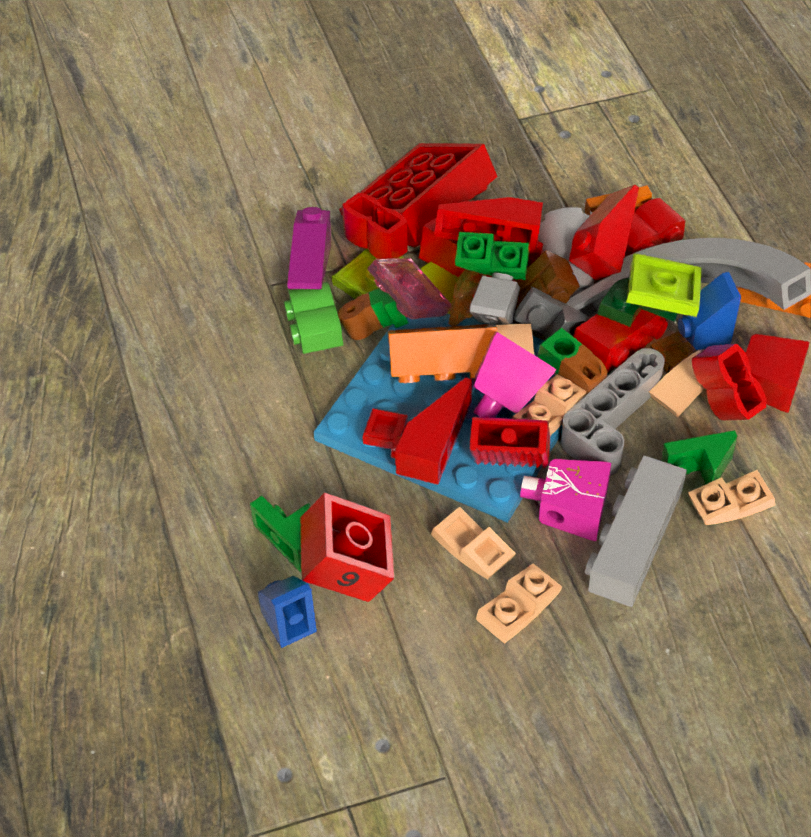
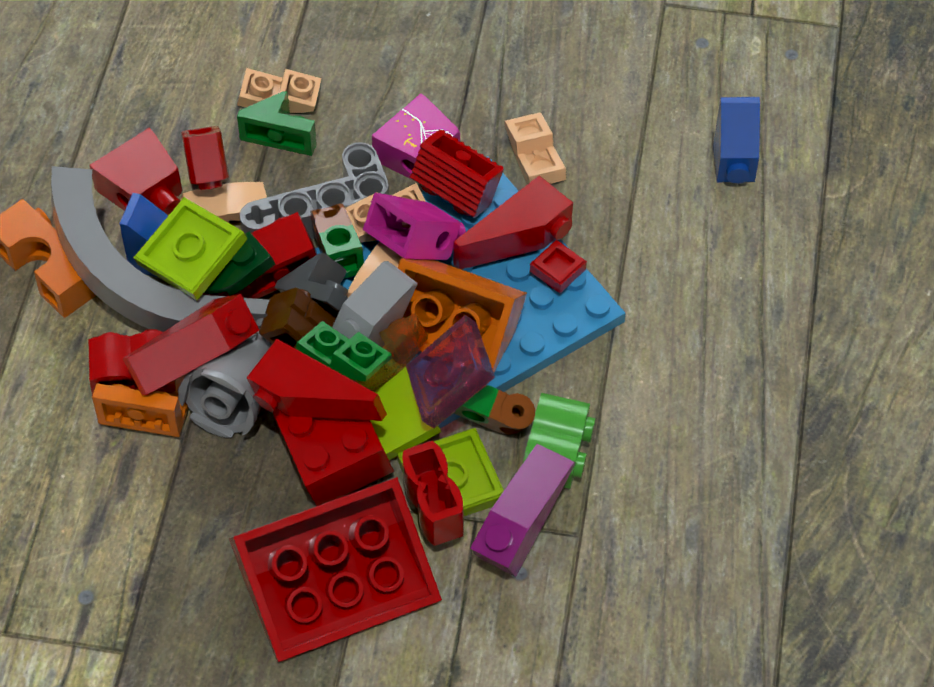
camera: 155 degrees left, 5 degrees up
(279, 529) = (701, 218): green slope -> none
(346, 547) = (661, 158): red brick -> none
(519, 604) = (520, 91): light nougat slope -> none
(636, 530) = (382, 90): light grey brick -> none

